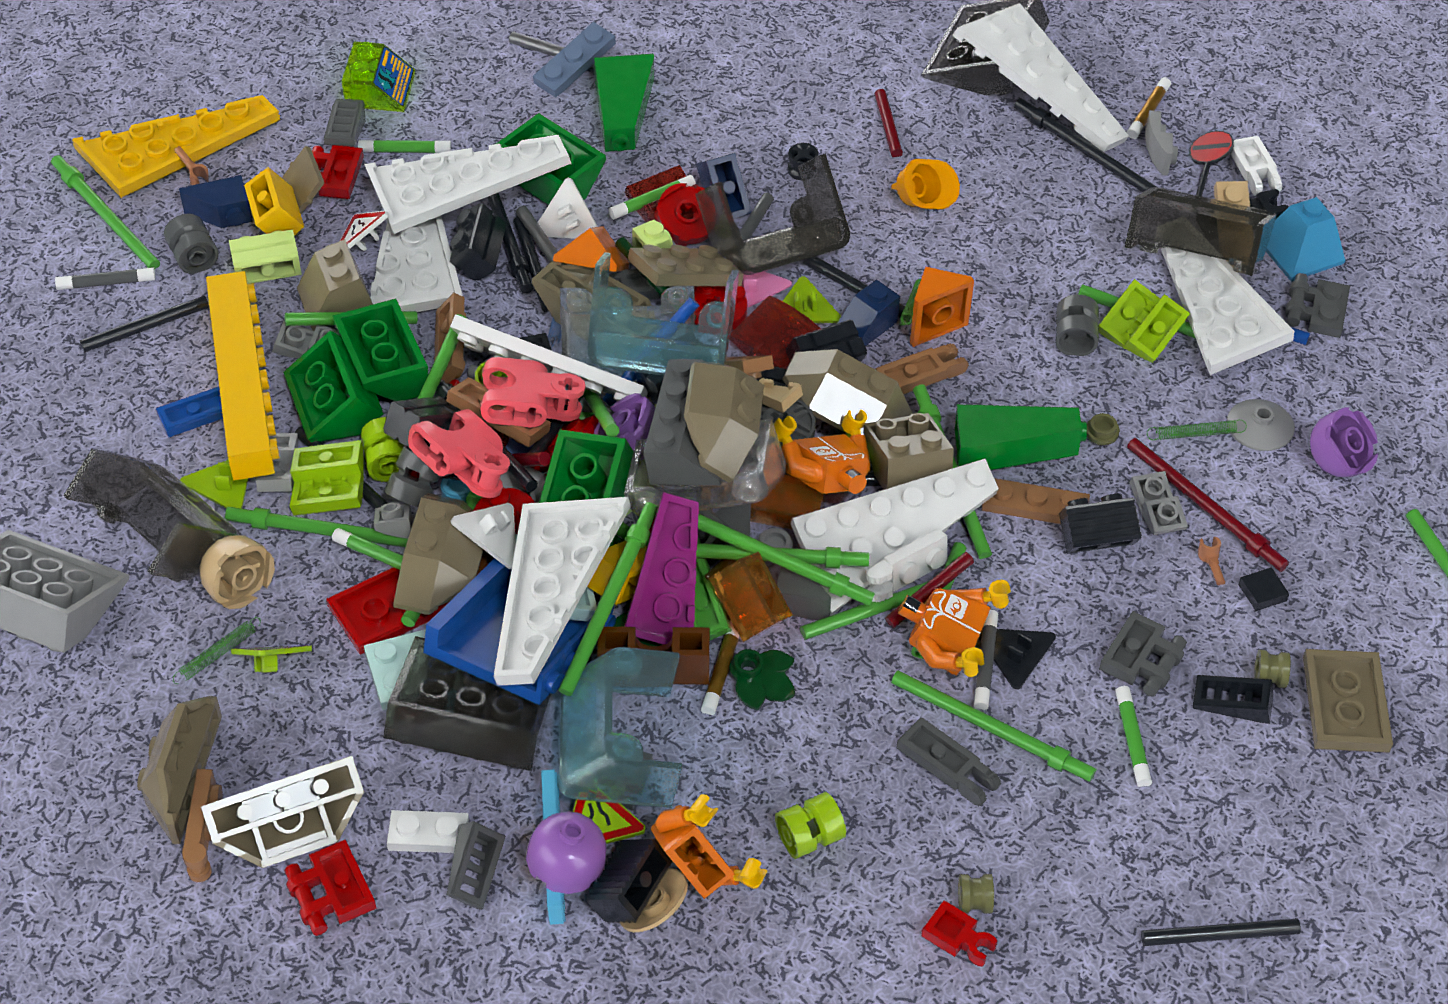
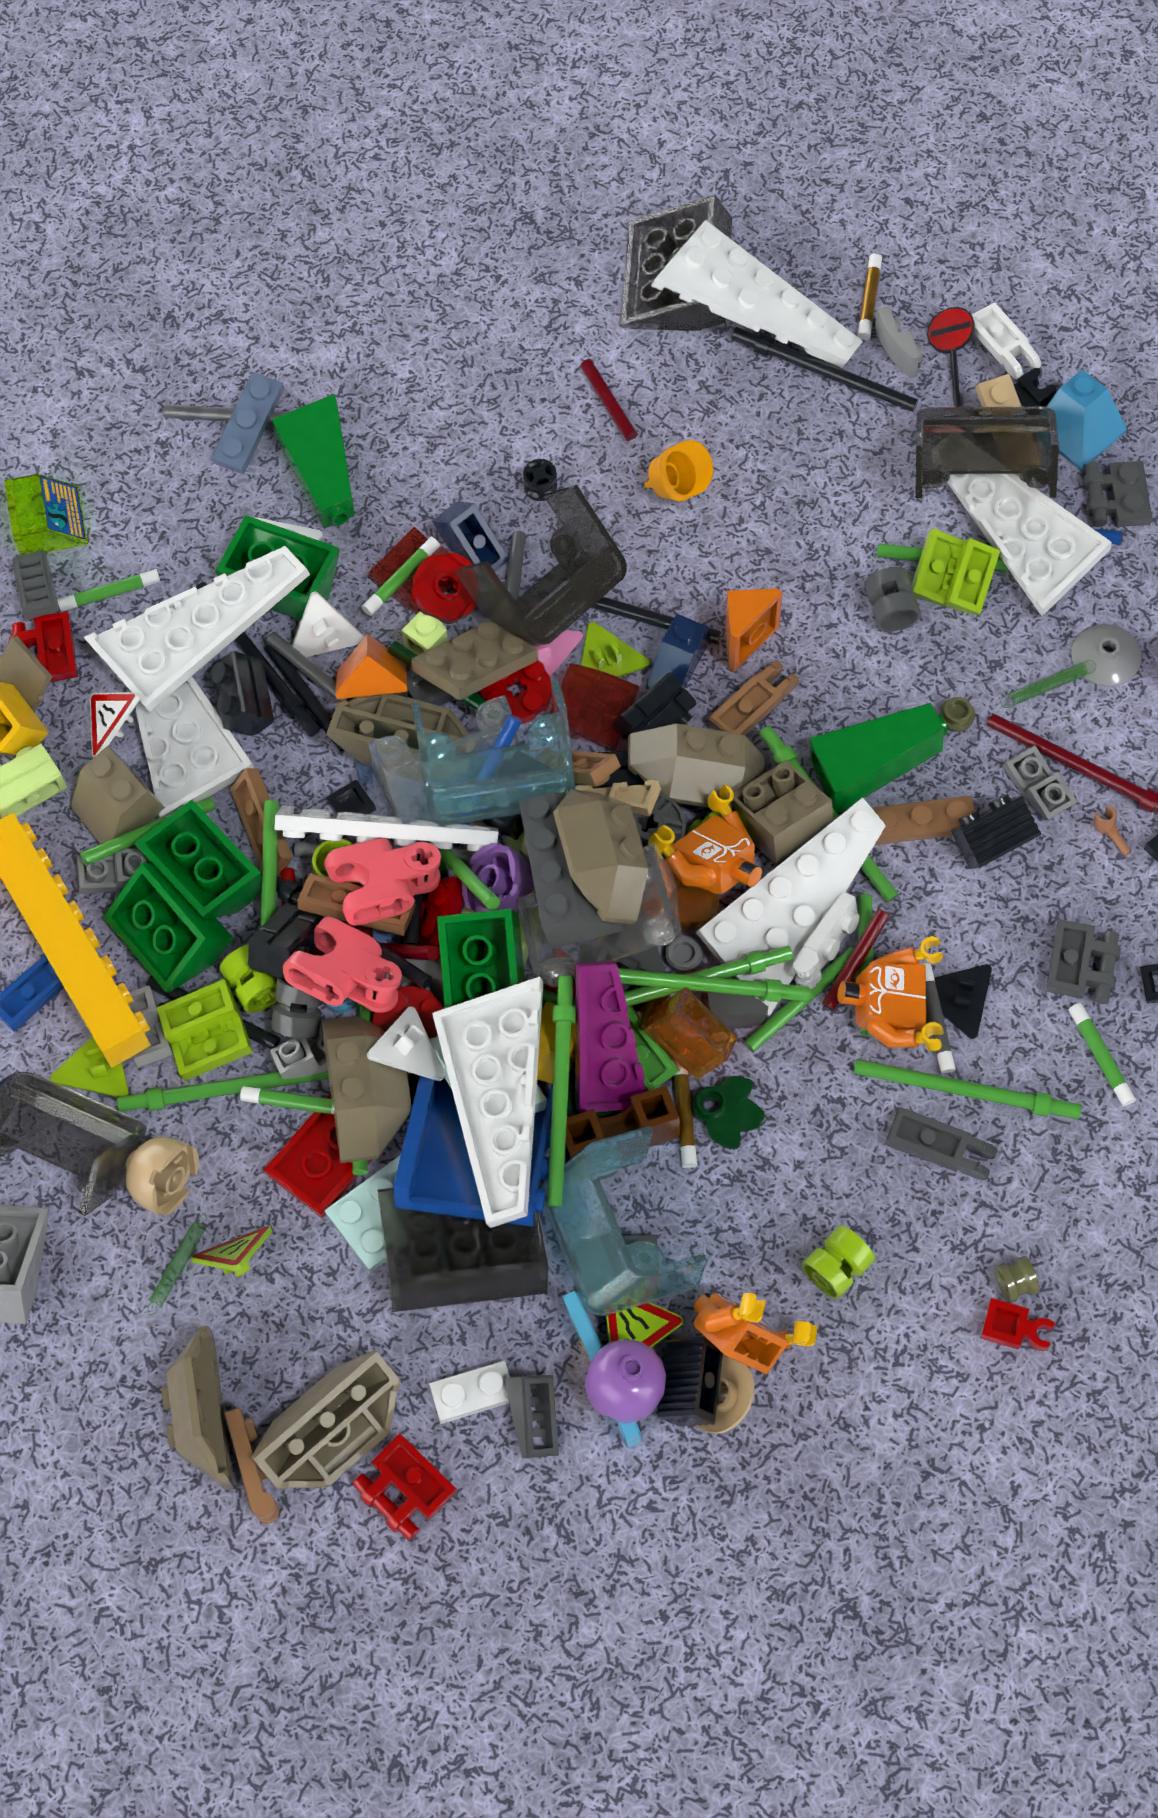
camera: 15 degrees left, 15 degrees up
(910, 305) = (723, 622): bright green piece -> none

